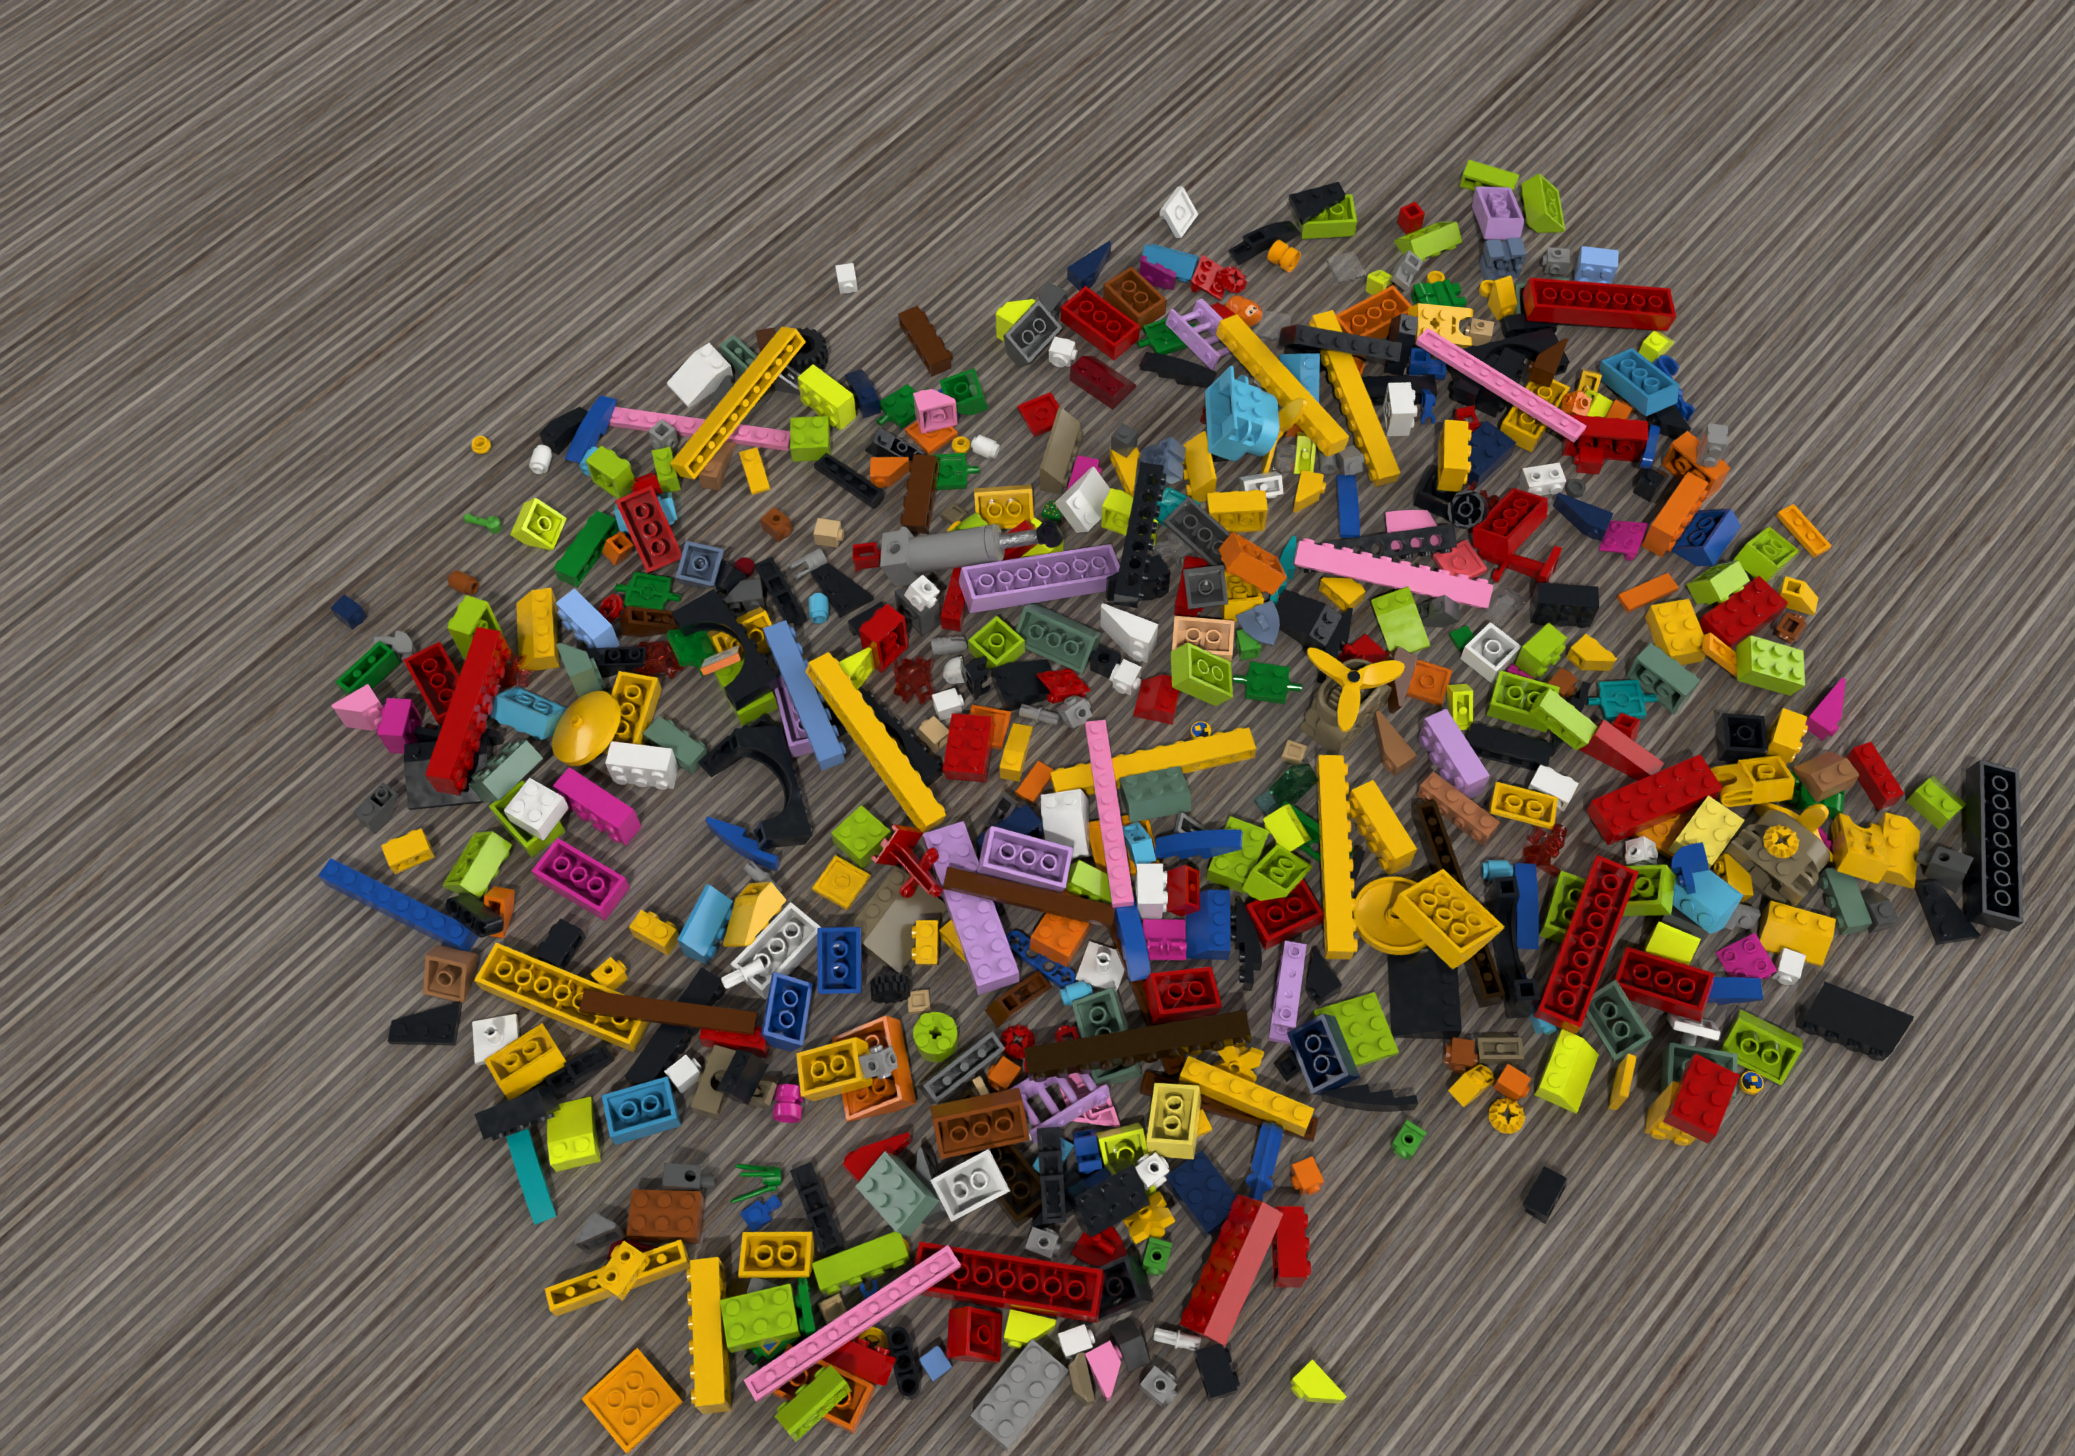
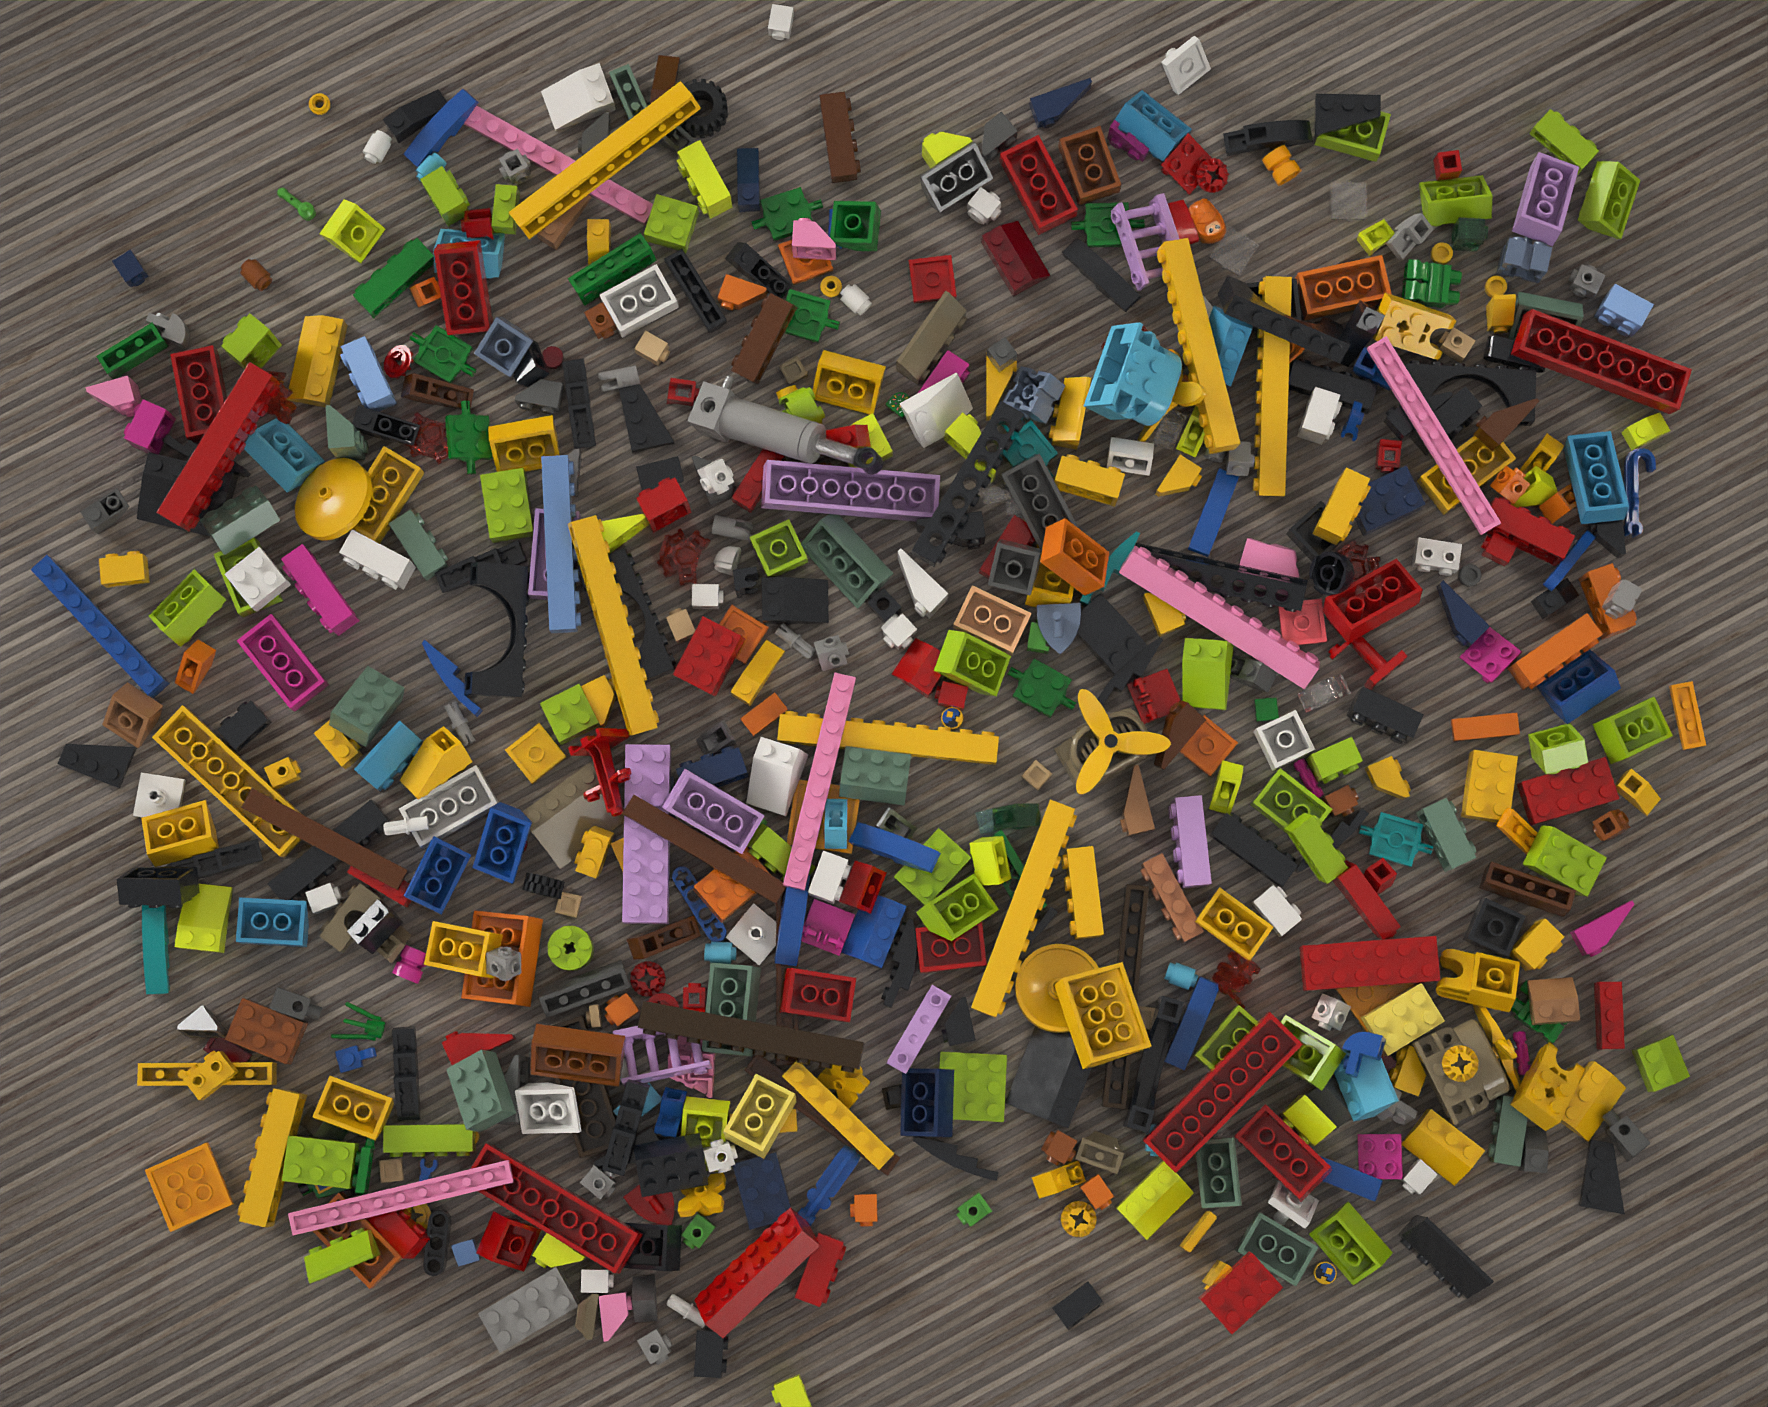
camera: 20 degrees right, 20 degrees up
(474, 915) = (169, 667): black beam -> none
(671, 887) = (366, 706): none -> sand green brick
(711, 614) = (517, 506): black arch -> none
(722, 659) = (491, 471): tile -> none
(771, 482) = (612, 267): none -> green fence
(805, 498) = (639, 300): none -> white brick
(818, 608) = (612, 436): medium azure brick -> none
(884, 810) = (600, 697): none -> yellow slope
(1063, 685) = (830, 617): red hinge -> none
(1193, 711) = (951, 695): none -> red brick
(1450, 254) = (1468, 234): none -> clear green brick
(1751, 698) = (1527, 889): none -> reddish brown brick
(1995, 845) = (1686, 1131): black brick -> none

